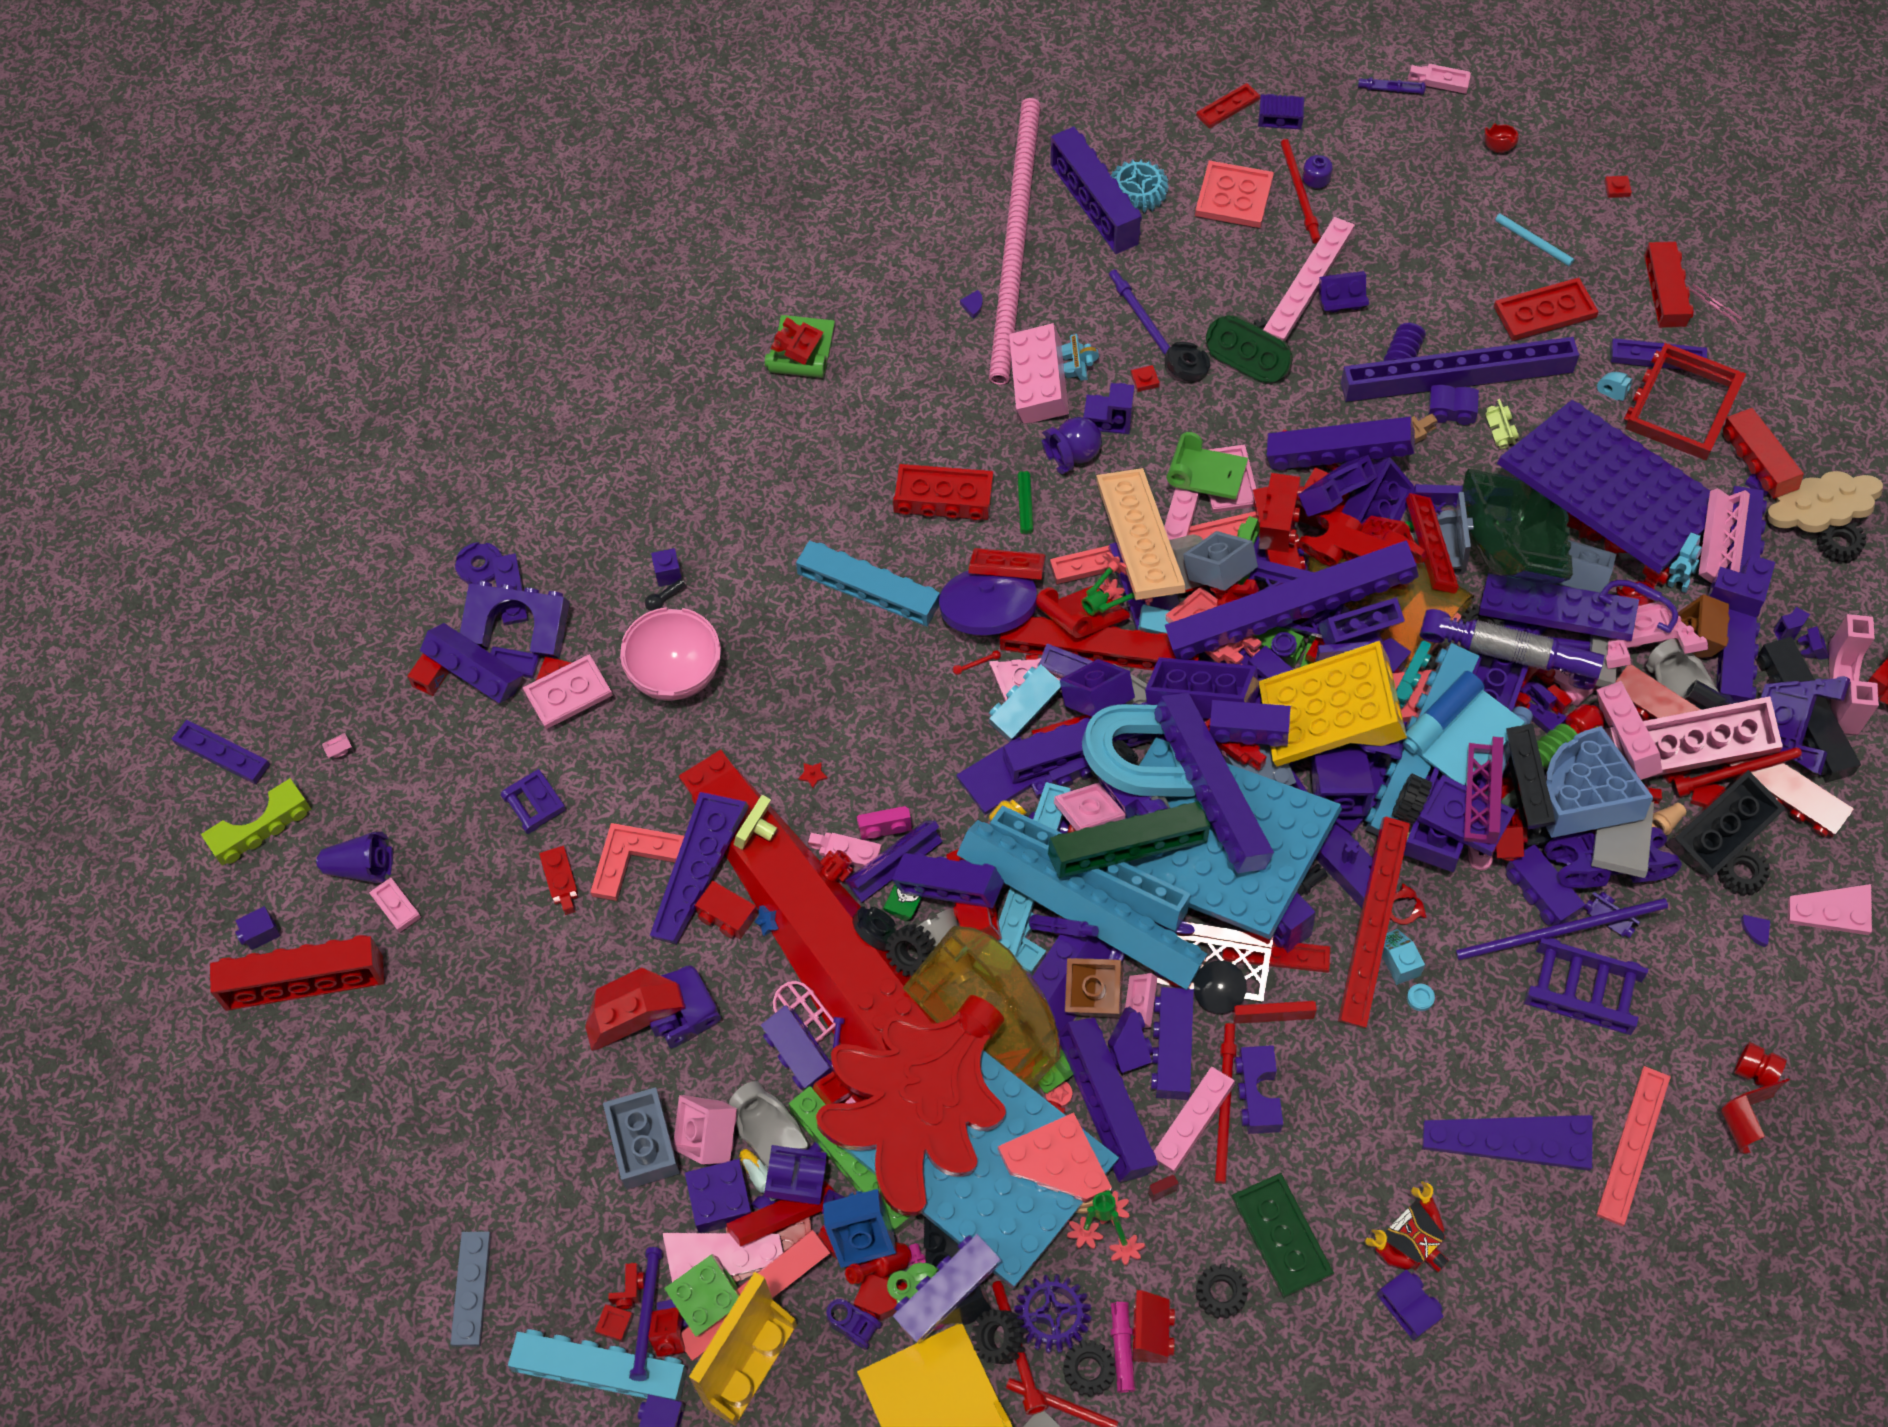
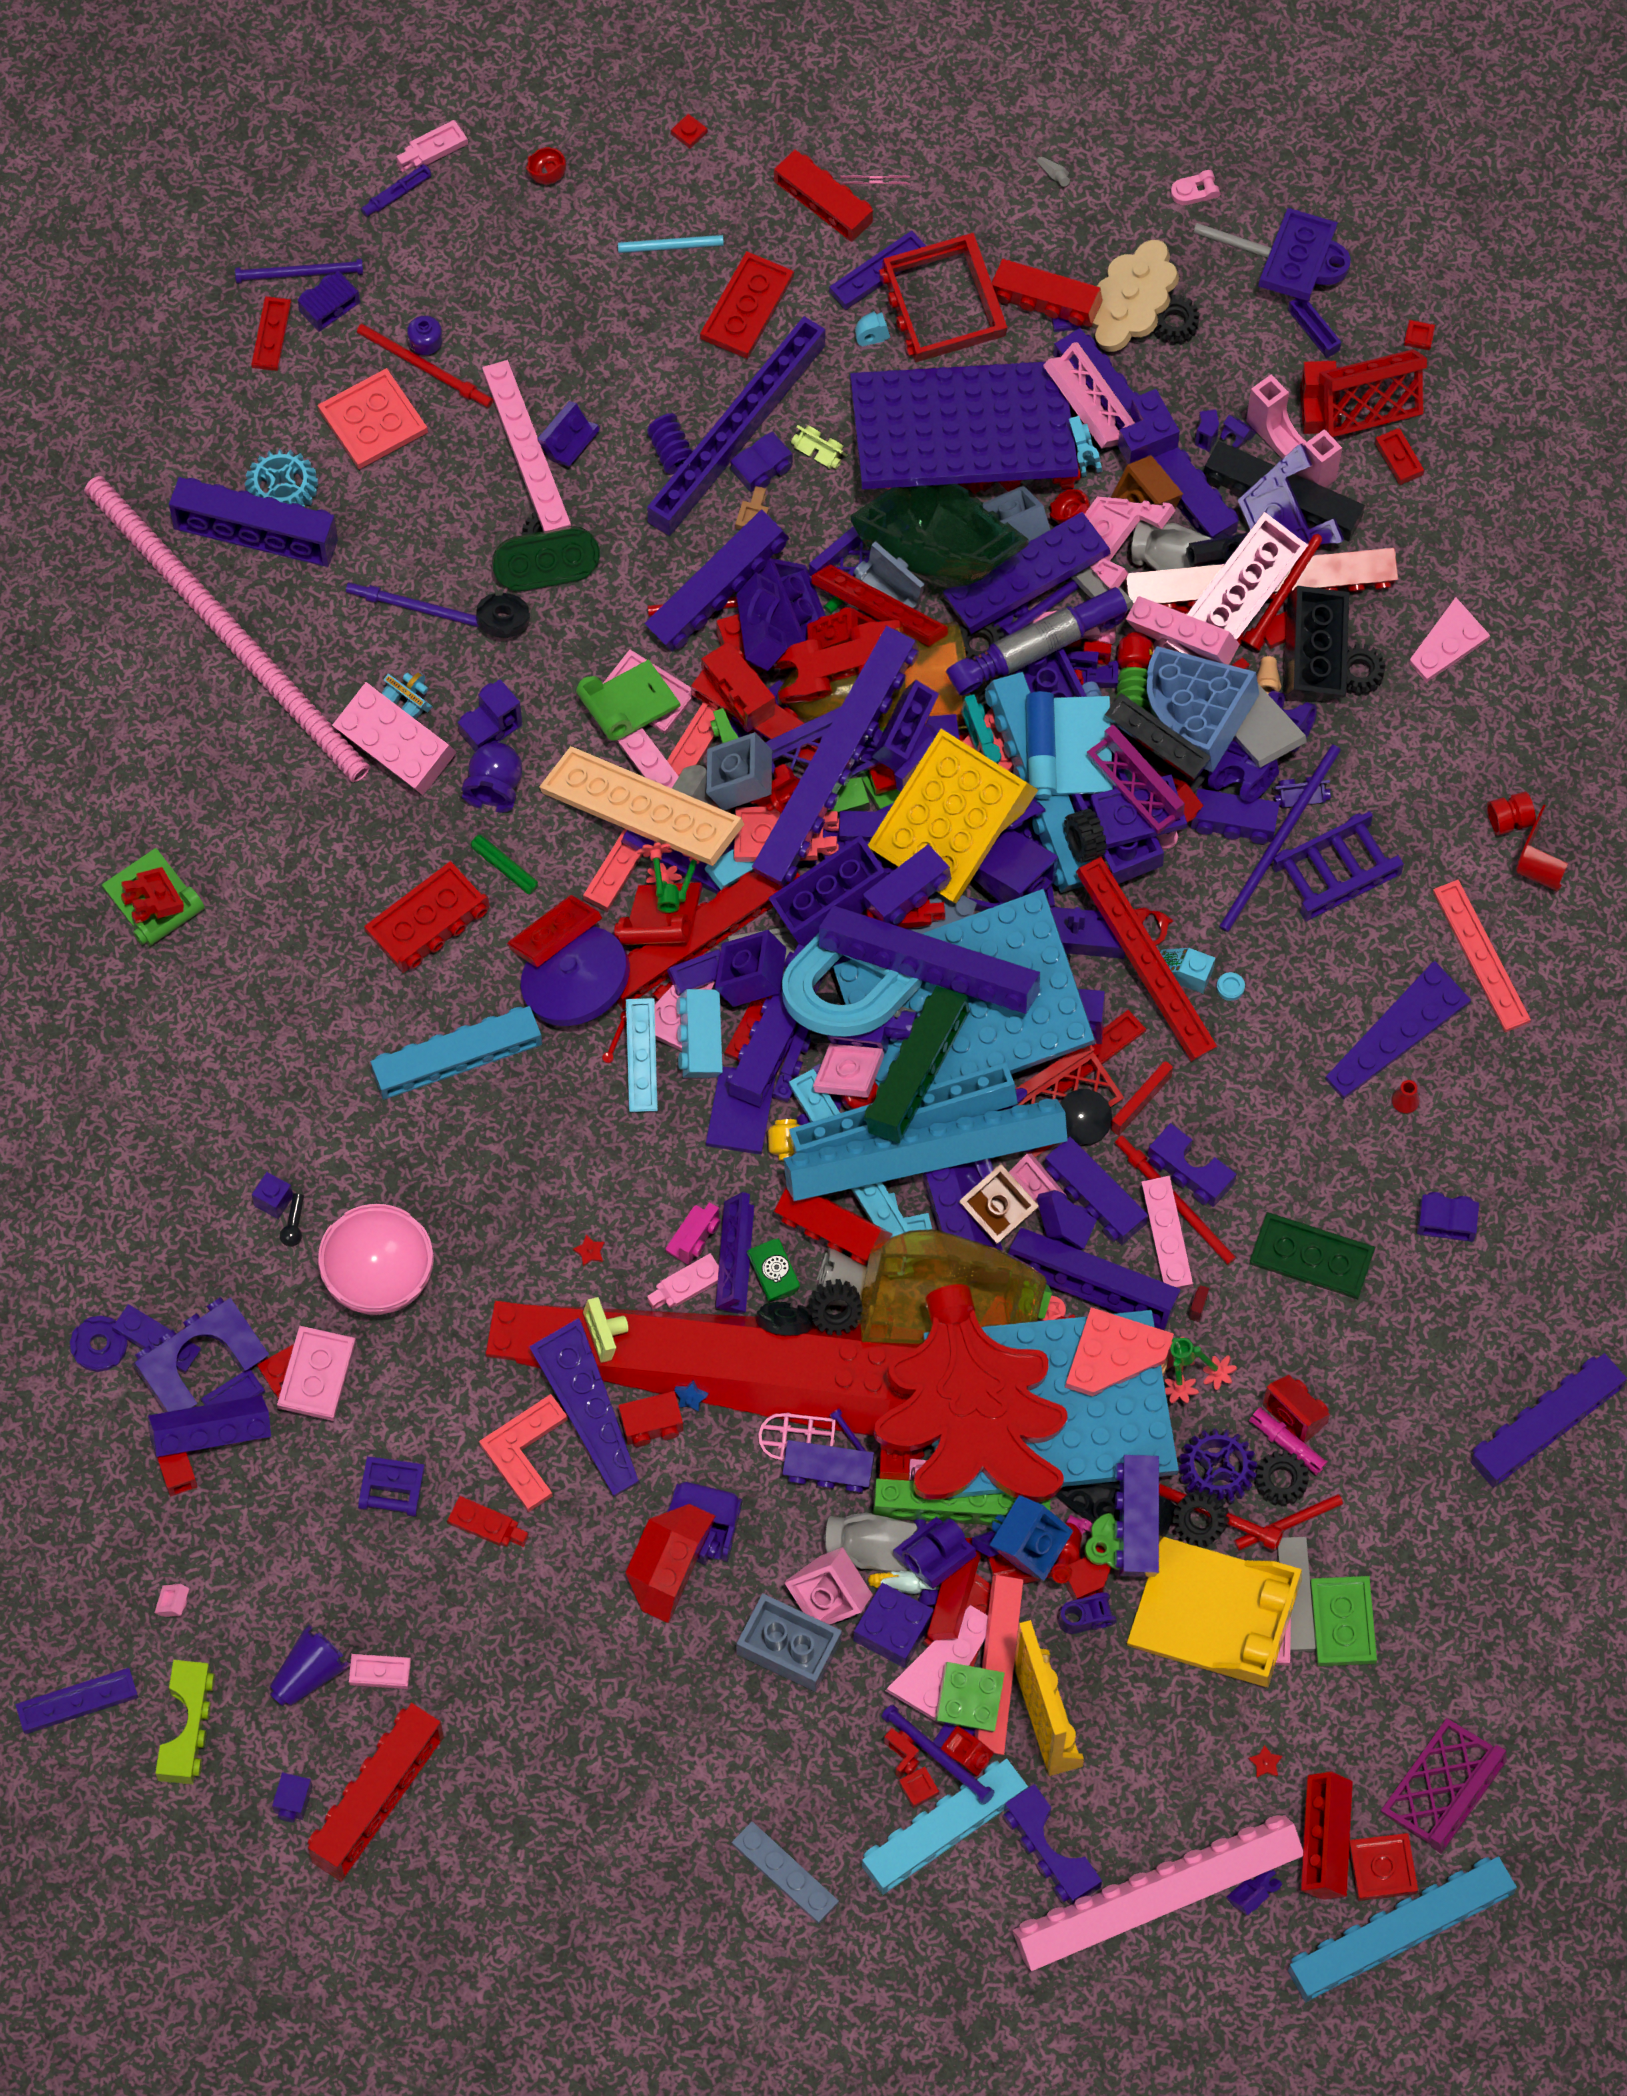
camera: 50 degrees left, 5 degrees up
(836, 866) = (698, 1301): red gear -> none
(948, 879) = (807, 1226): dark purple brick -> none
(972, 303) = (257, 724): dark purple tile -> none
(974, 683) = (641, 1055): none -> medium azure tile
(1062, 926) = (928, 1180): dark purple piece -> none
(1145, 378) = (482, 662): red plate -> none
(1227, 1275) = (1314, 1319): black tyre -> none
(1245, 61) = (294, 271): none -> dark purple bar
(1284, 644) = (854, 797): dark purple plate -> none
(1413, 1235) = (1403, 1165): torso -> none
(1466, 1195) = (1406, 1097): none -> red cone
(1646, 591) = (1086, 498): dark purple piece -> none
(1757, 929) = (1410, 707): dark purple tile -> none
(1849, 388) = (1055, 171): none -> light grey bar

